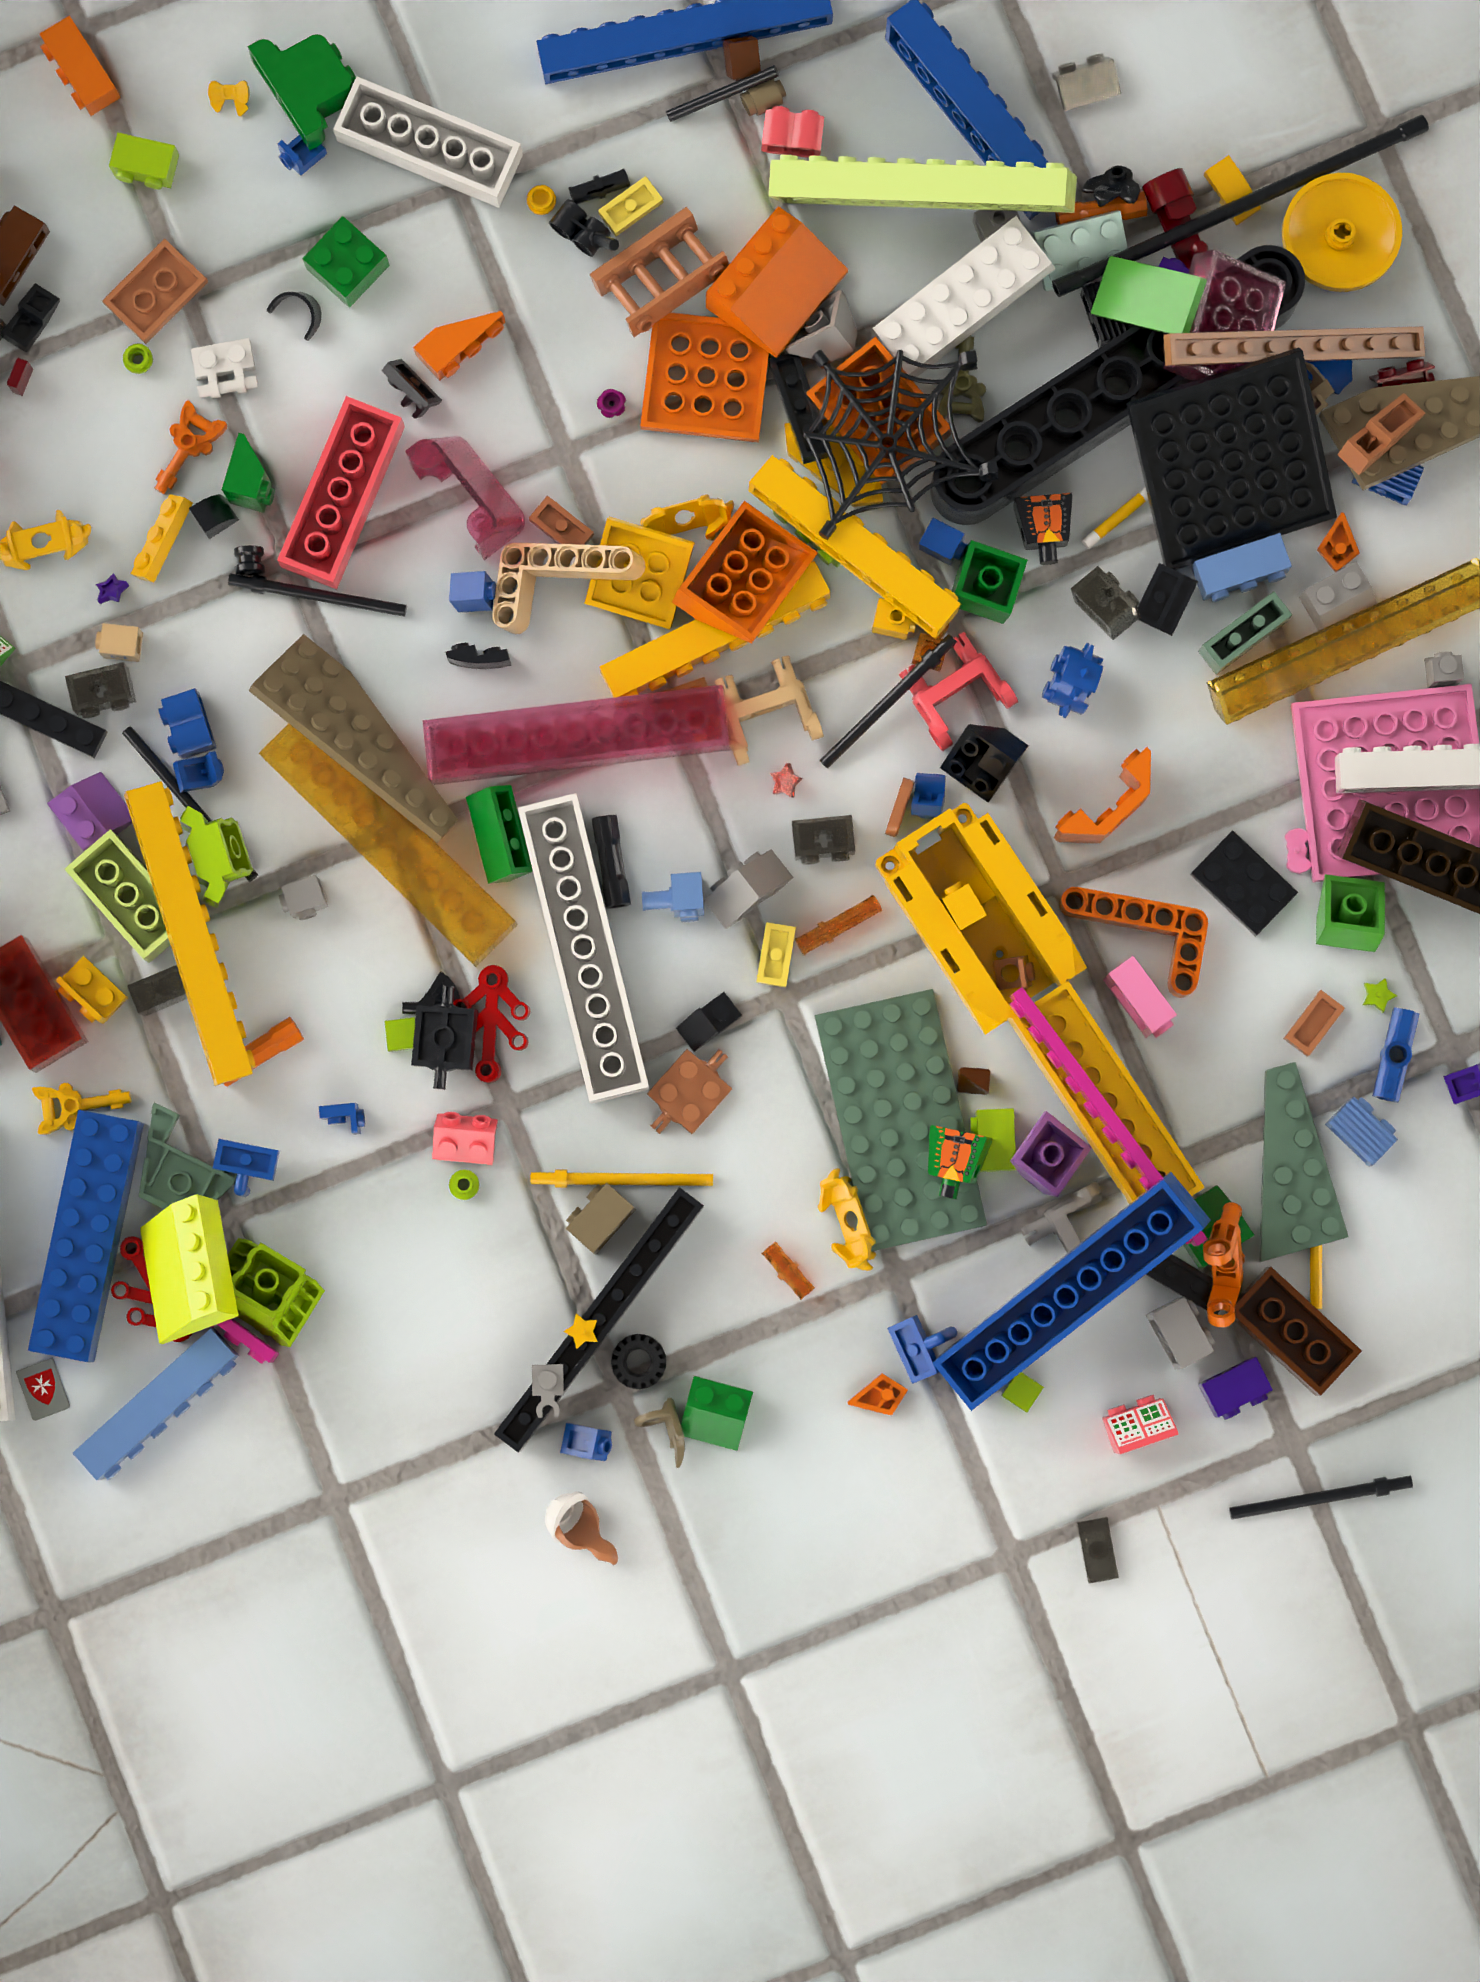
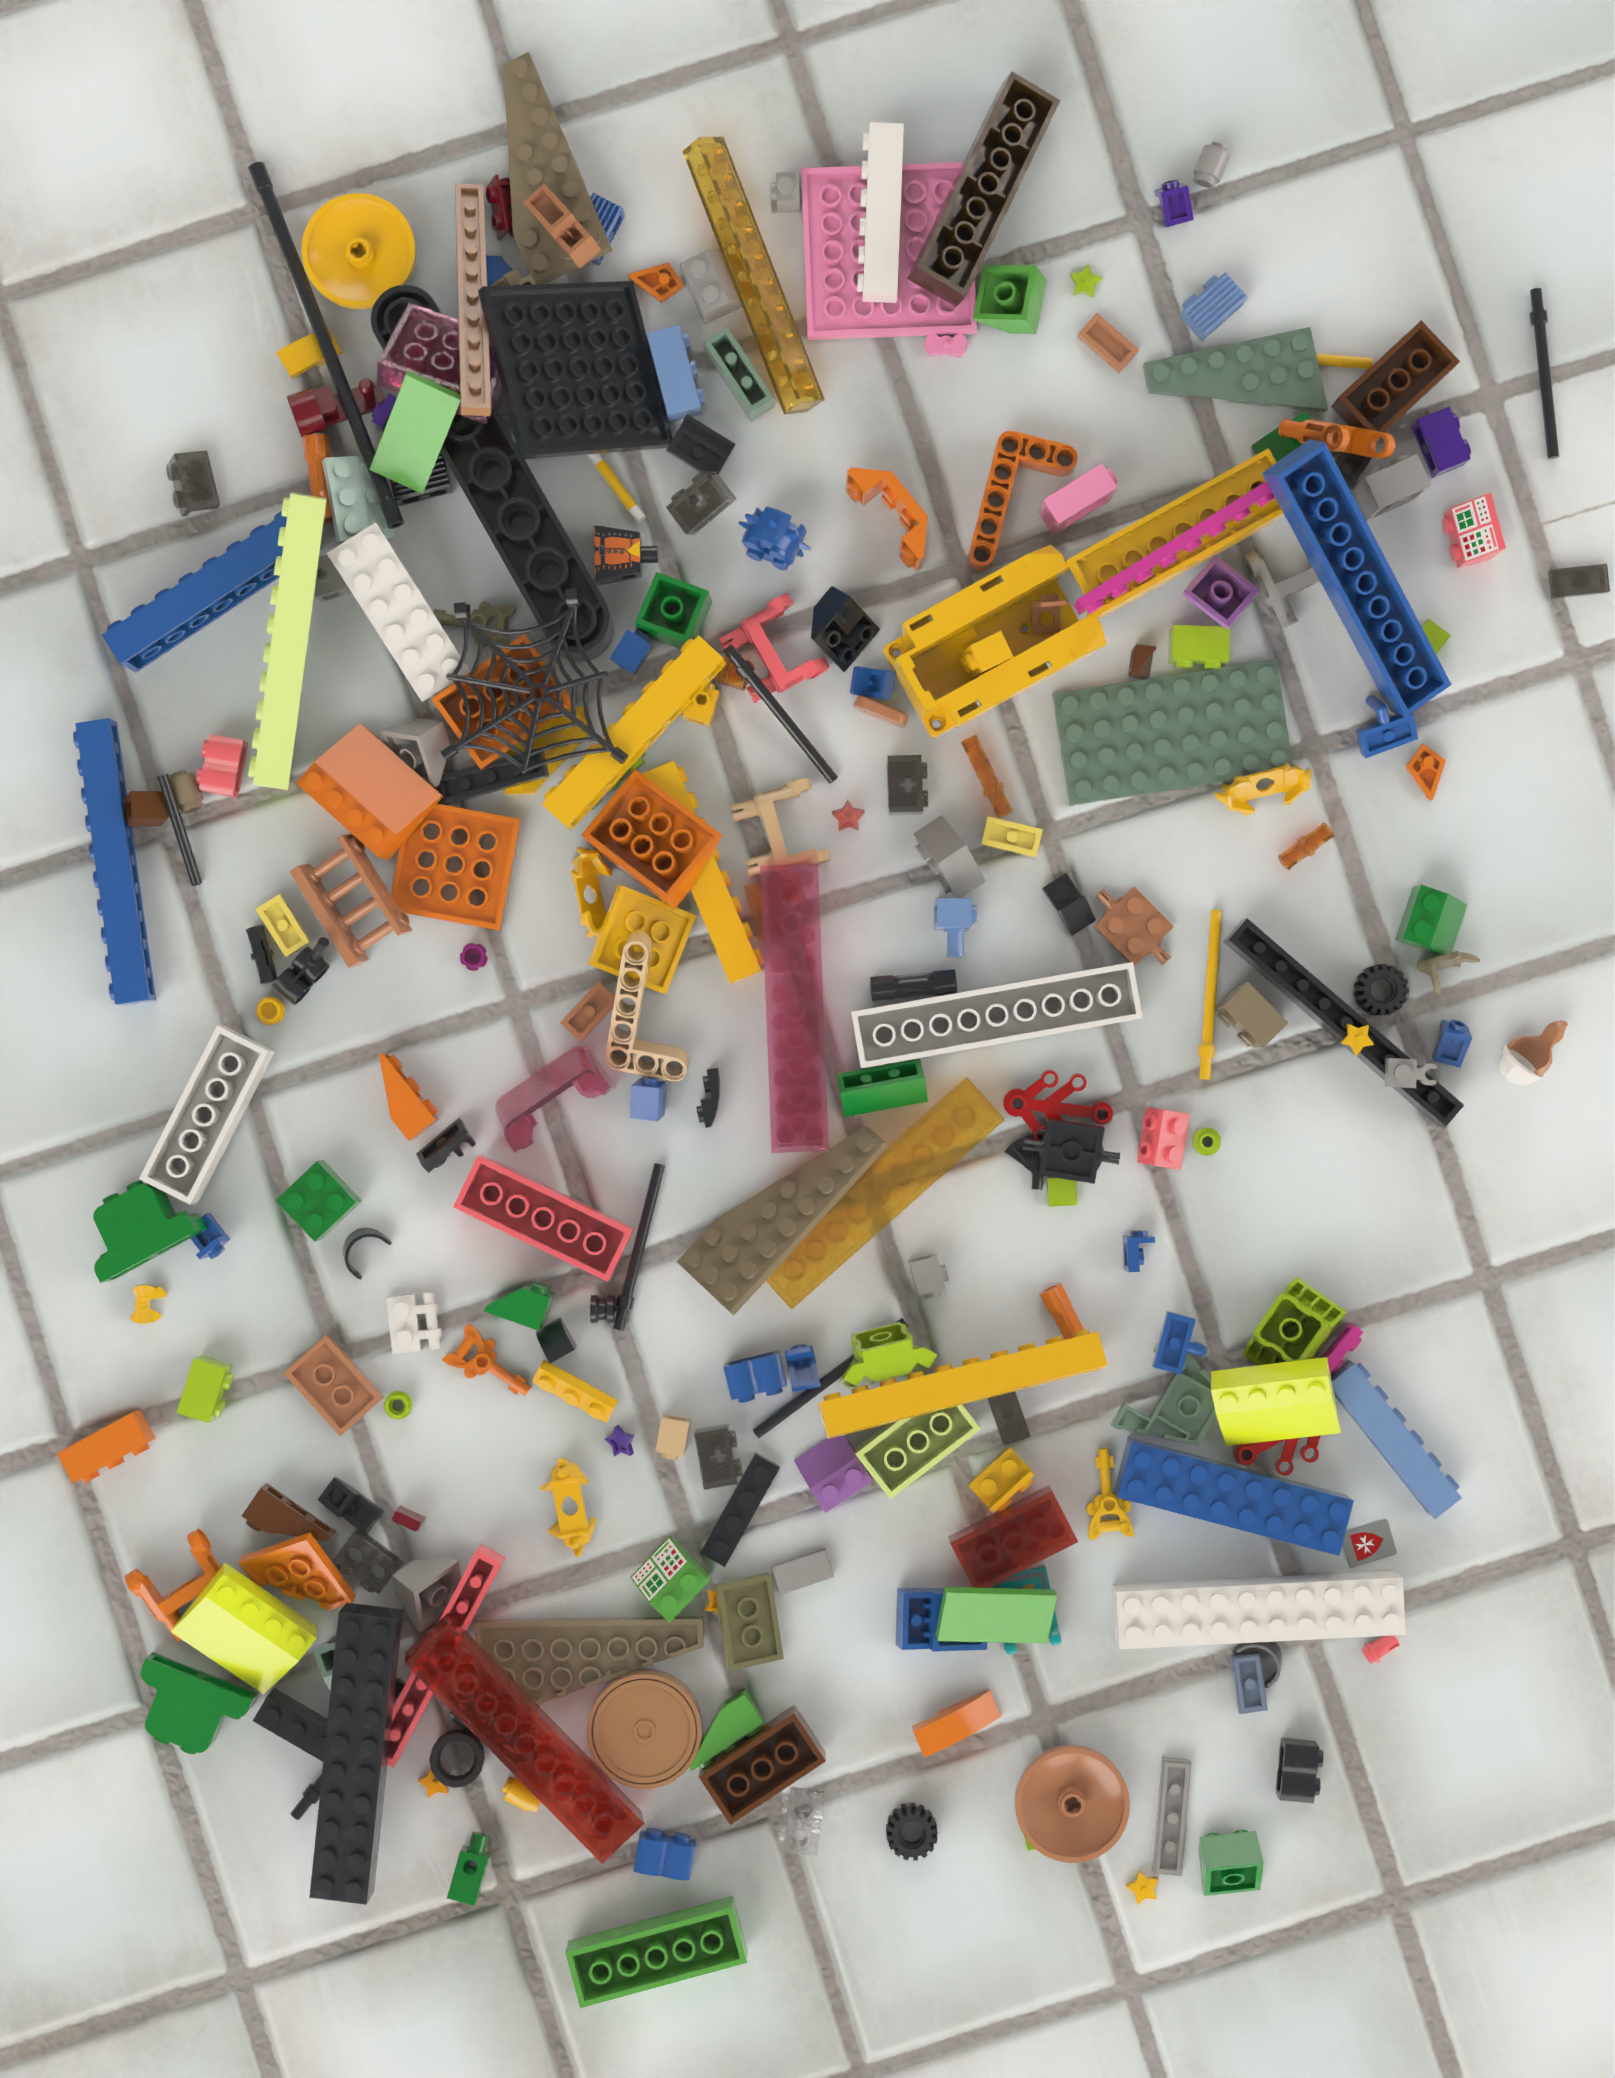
camera: 90 degrees left, 5 degrees up
(956, 1158) = (1217, 681): torso -> none
(1113, 183) = (296, 464): black plate -> none
(1244, 883) = (972, 397): black plate -> none
(1392, 1074) = (1162, 274): blue piece -> none

